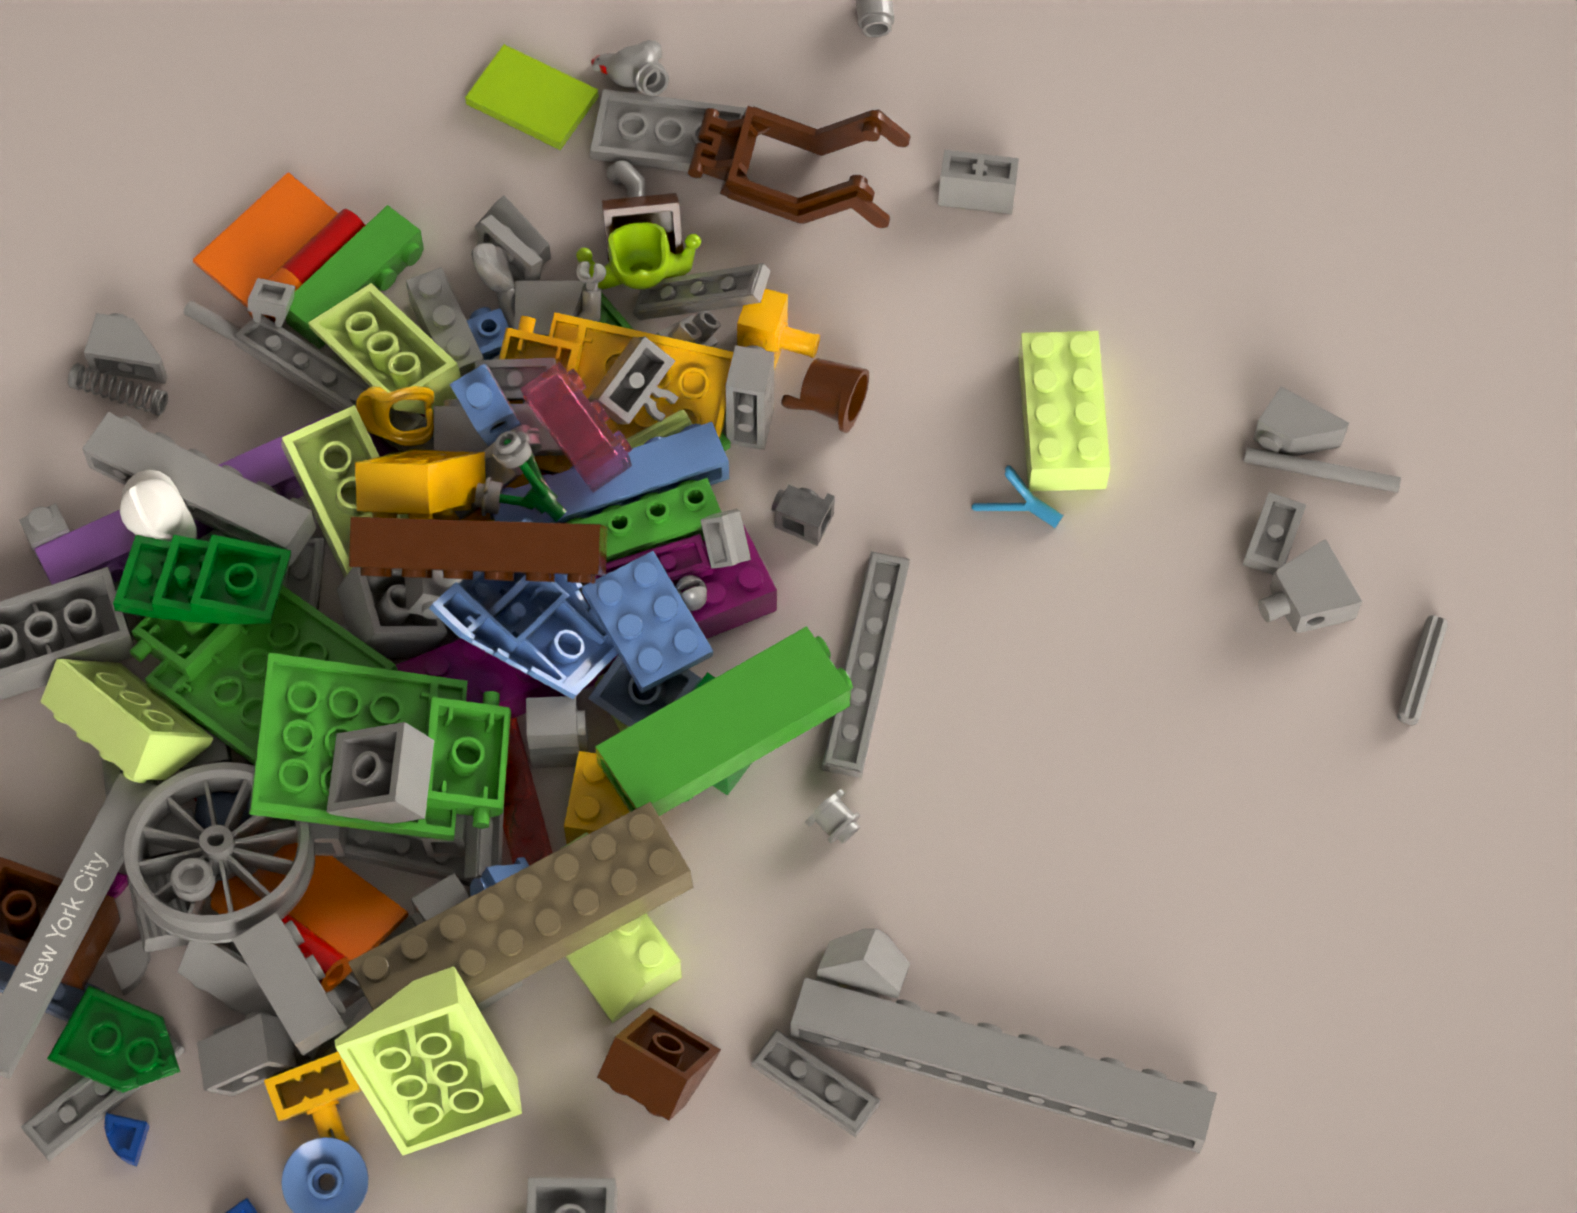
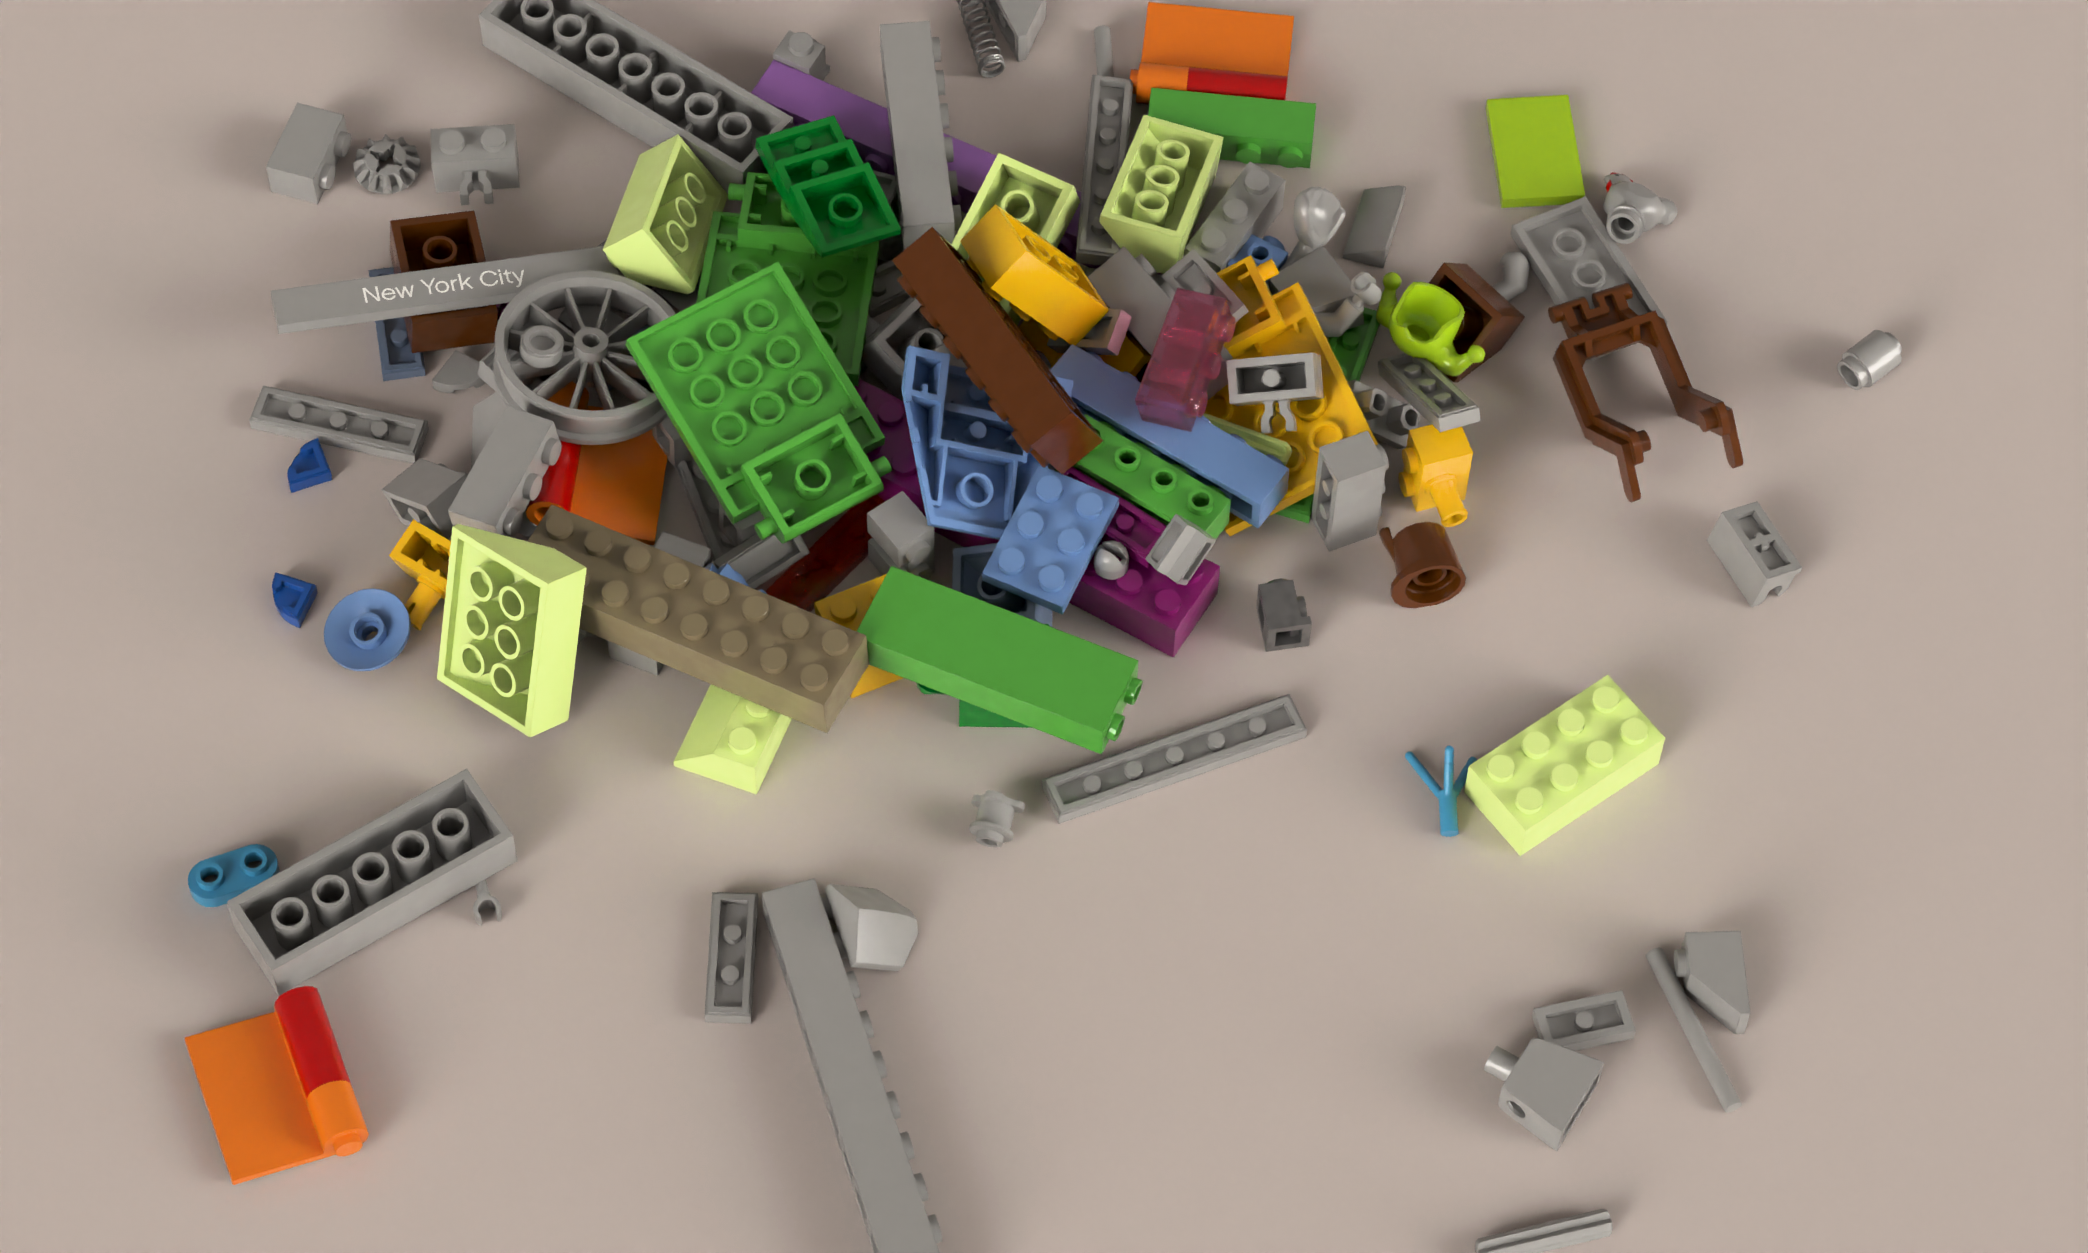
camera: 55 degrees right, 5 degrees down
(115, 1043) = (379, 402): green tile -> none
(155, 507) = (866, 111): white piece -> none
(270, 299) = (1142, 74): light grey tile -> none
(374, 411) = (1086, 208): yellow piece -> none
(381, 774) = (734, 417): light grey slope -> none
(485, 403) = (1146, 270): medium blue torso -> none
(514, 450) = (1102, 311): plant -> none
(523, 260) = (1348, 238): light grey plate -> none
(657, 1063) = (656, 816): reddish brown slope -> none

